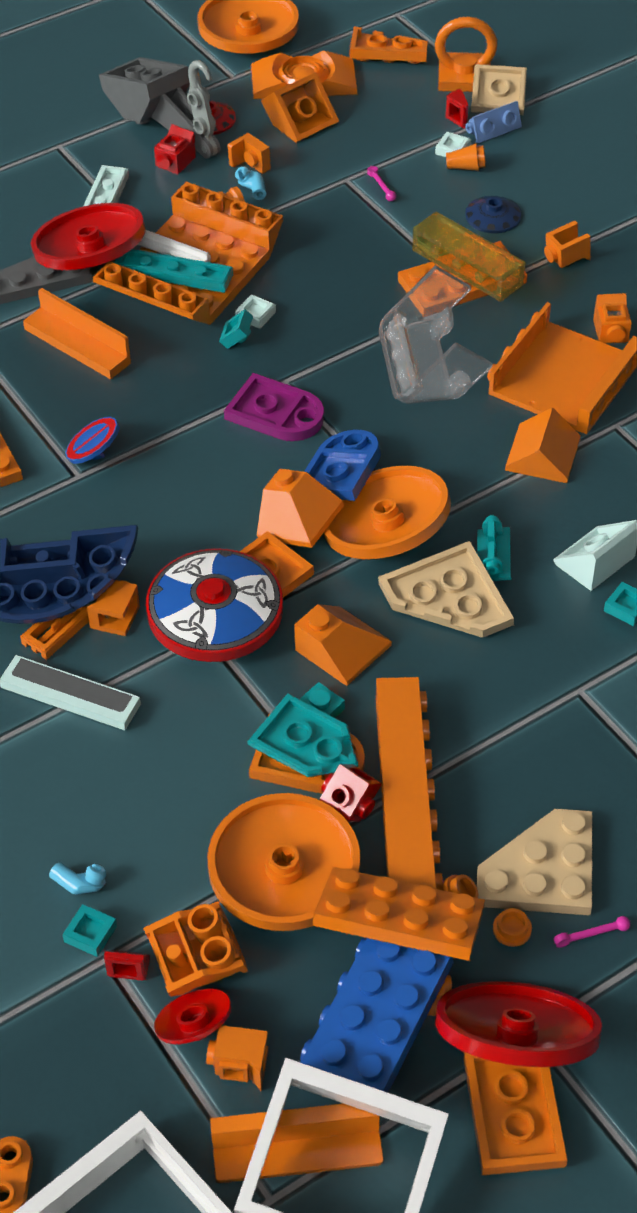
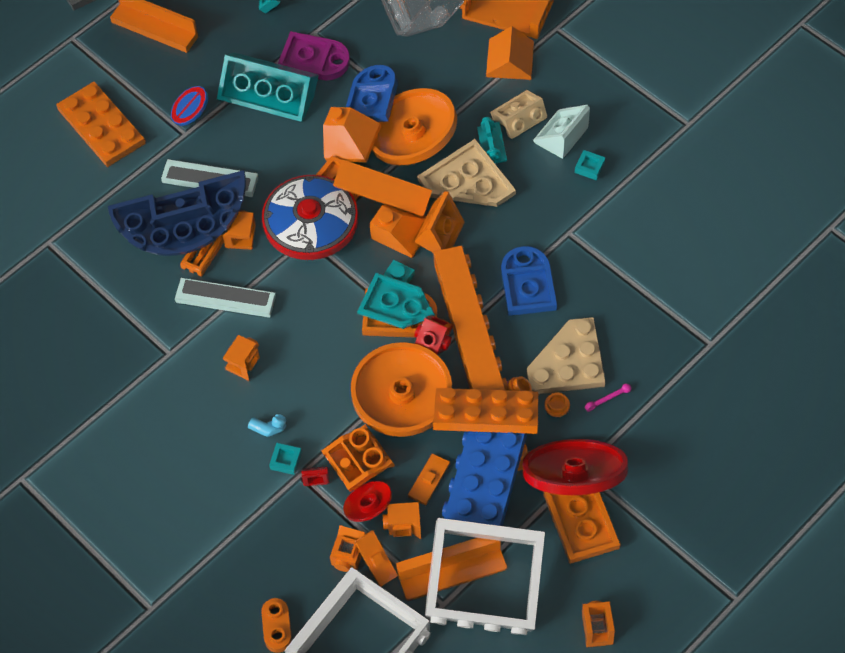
camera: 10 degrees left, 10 degrees up
(60, 522) = (190, 174): none -> tile
(68, 774) = (242, 356): none -> orange window
(145, 1082) = (345, 552): none -> orange window
(182, 1105) = (376, 558): none -> orange piece
(202, 433) = (266, 86): none -> teal slope
(294, 1002) = (429, 479): none -> orange piece
(324, 582) = (382, 188): none -> orange panel
(398, 646) = (440, 225): none -> orange slope
(505, 751) = (528, 284): none -> blue tile
(542, 522) = (520, 113): none -> tan bracket

